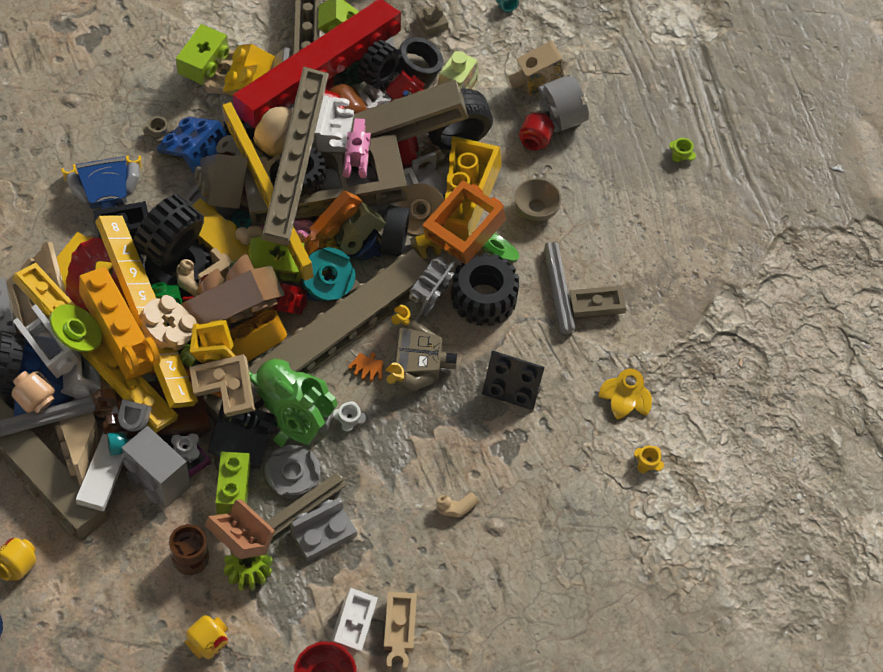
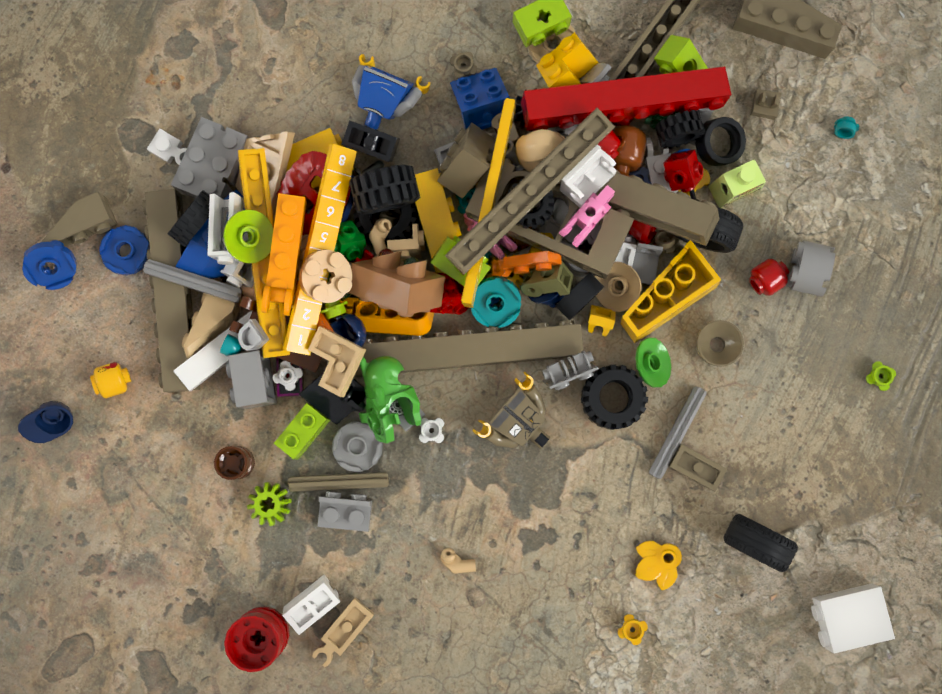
camera: 45 degrees right, 25 degrees up
(33, 391) = (192, 263): light nougat head -> none
(206, 637) = (201, 540): yellow head -> none
(207, 354) = (336, 317): yellow bracket -> none
(215, 334) = (356, 312): yellow tile -> none
(242, 531) = (273, 483): nougat bracket -> none
(245, 235) = (455, 229): tan arm -> none
(367, 365) = (477, 396): orange piece -> none
(460, 249) = (608, 345): orange window -> none
(513, 380) = (573, 495): black hinge -> none
(537, 68) = (823, 220): tan torso -> none
(692, 314) = (760, 543): none -> black tyre
(813, 331) = (852, 618): none -> white brick

